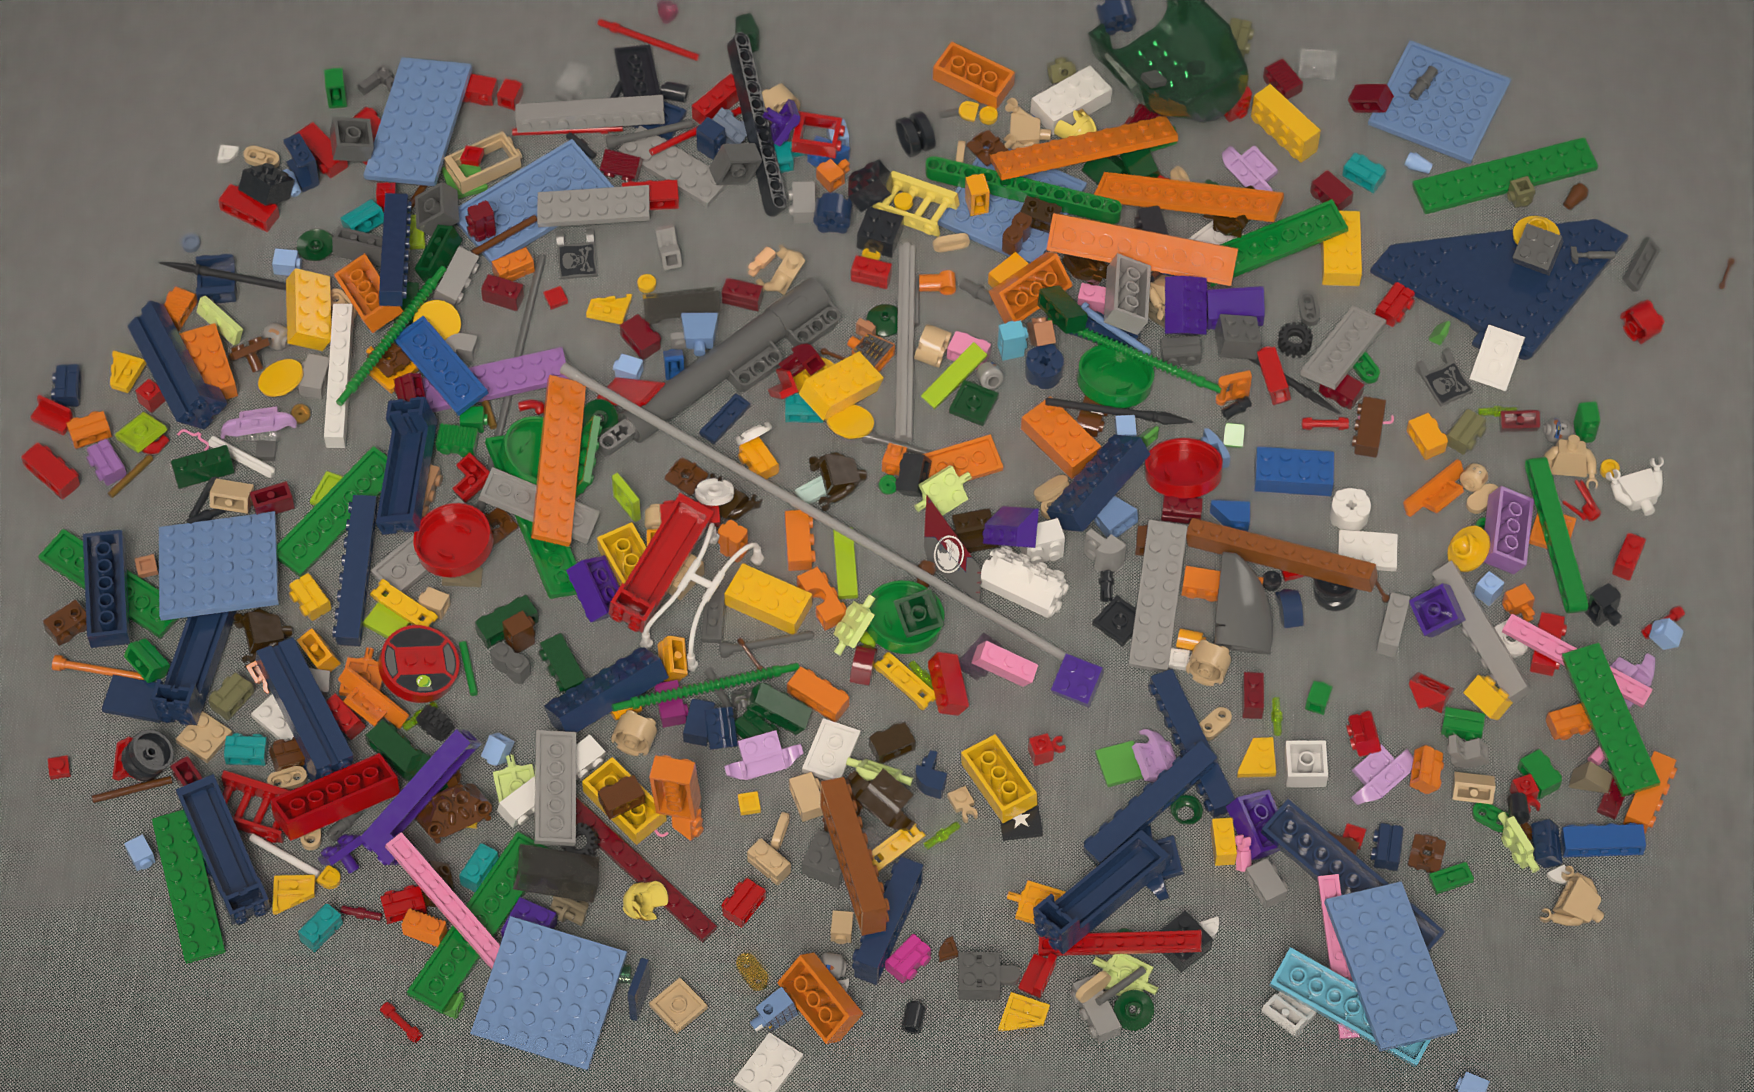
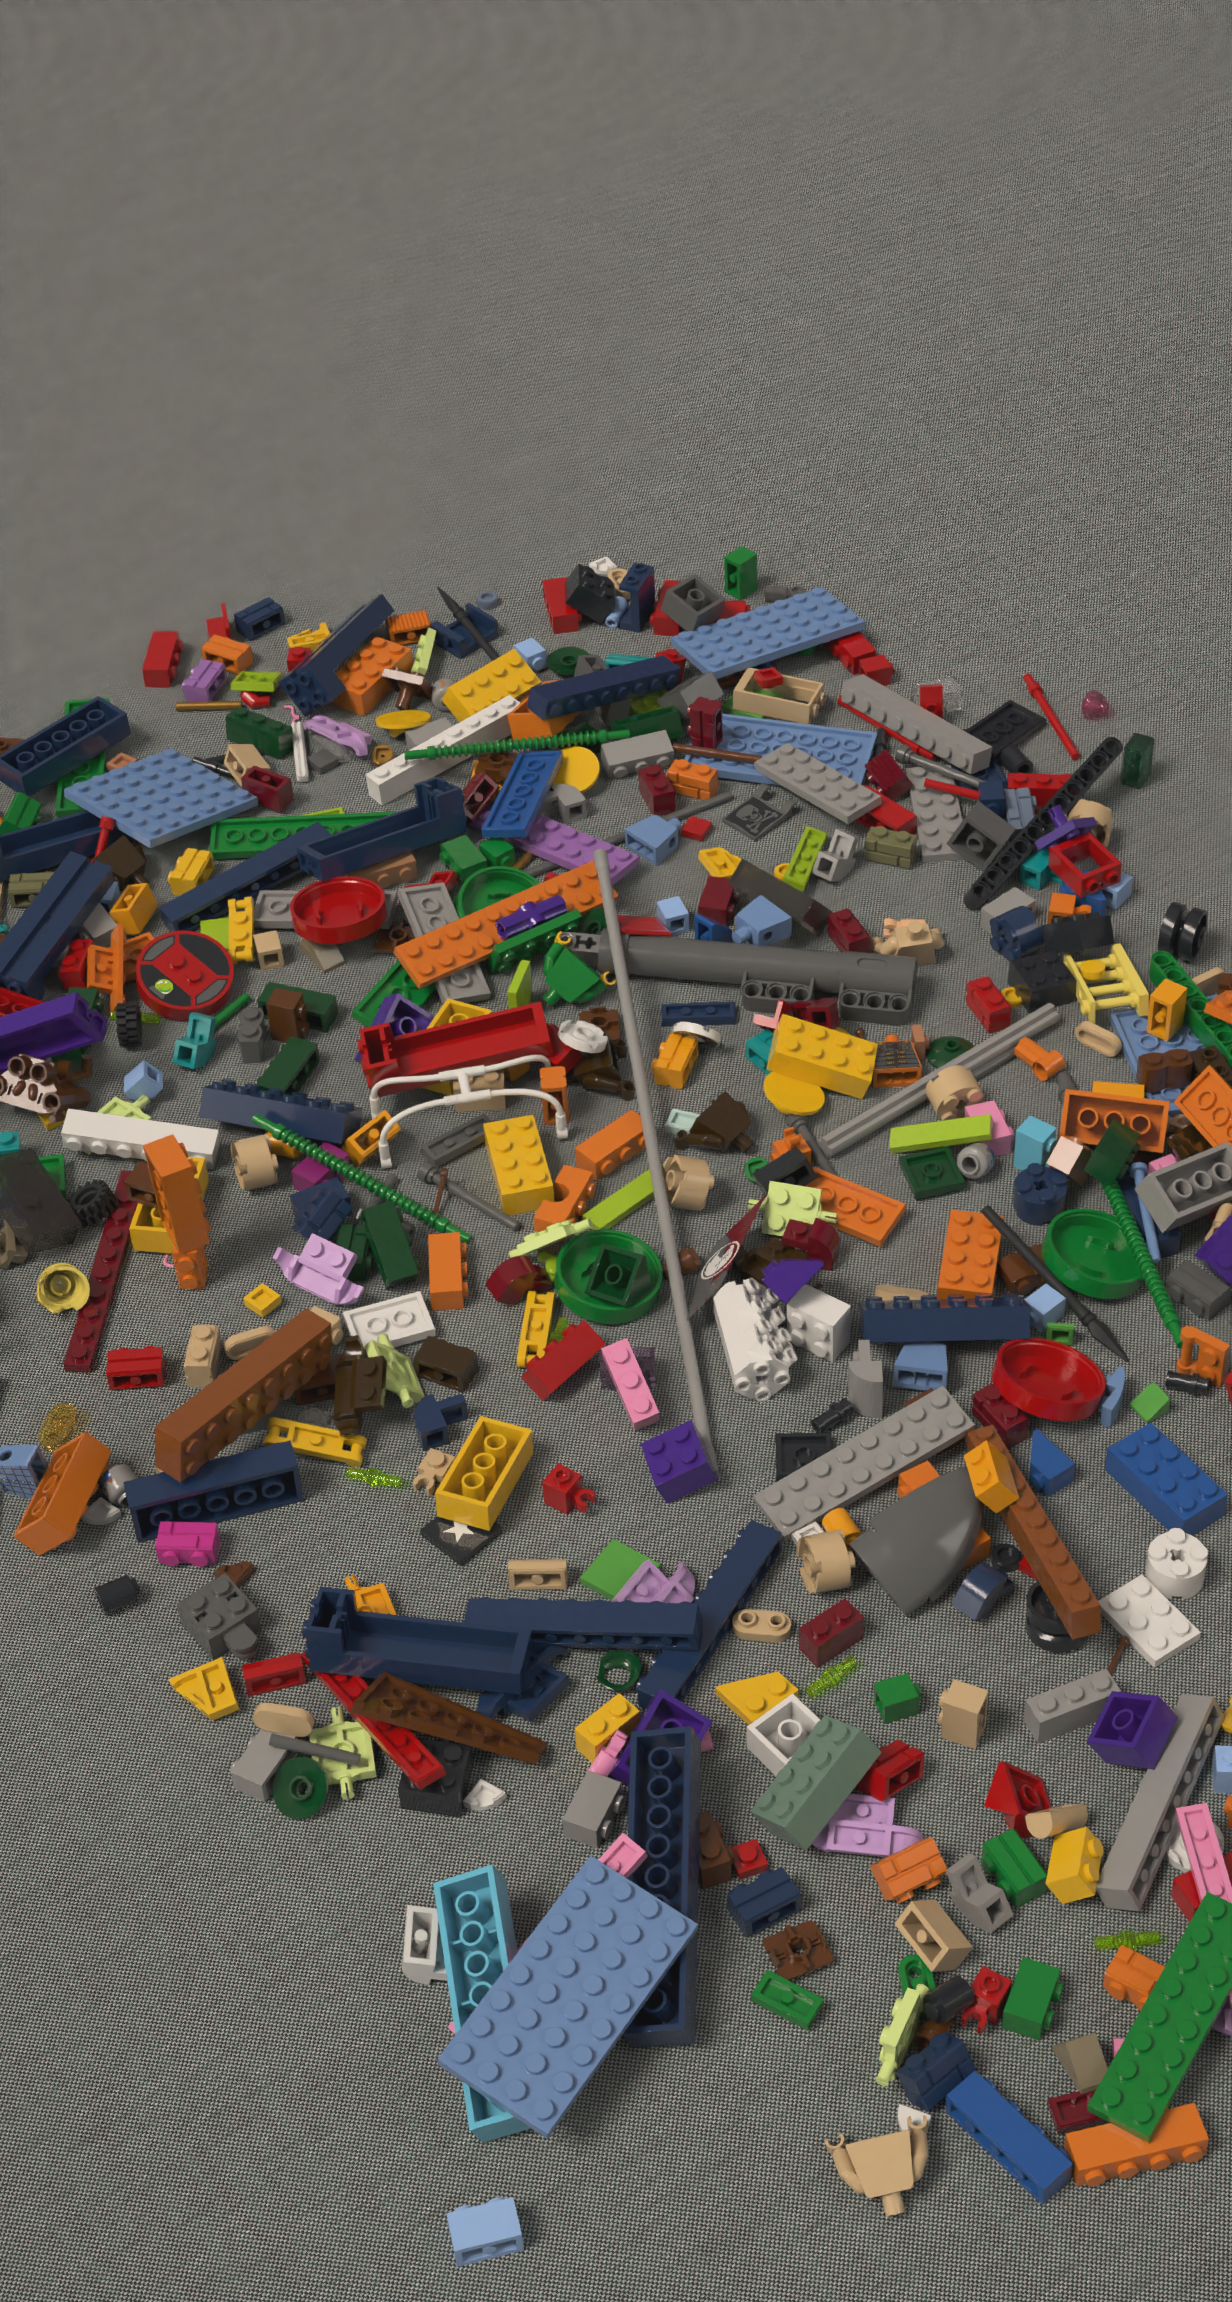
camera: 55 degrees right, 15 degrees down
(228, 615) = (106, 824): none -> red bar
(487, 697) = (198, 1044): none -> teal brick
(545, 326) = (653, 838): none -> medium blue torso
(555, 788) = (122, 1136): light grey plate -> none
(575, 444) = (530, 916): none -> dark purple piece
(583, 89) = (932, 698): none -> red plate
(635, 459) = (570, 975): none -> green torso
(647, 264) = (804, 858): none -> lime tile
(686, 213) = (890, 847): none -> olive brick
(875, 524) = (687, 1182): none -> tan brick
(977, 498) = (817, 1239): none -> dark red brick
(1087, 802) = (538, 1574): none -> tan brick
(1148, 917) = (420, 1710): none -> reddish brown wing
(1242, 546) = (991, 1476): none -> light orange brick
(1350, 770) = (815, 1782): none -> sand green brick
(1361, 675) = (963, 1713): none -> tan brick
(1456, 684) = (1056, 1820): none -> tan brick
(1540, 709) = (1127, 1938): none -> clear neon green bar

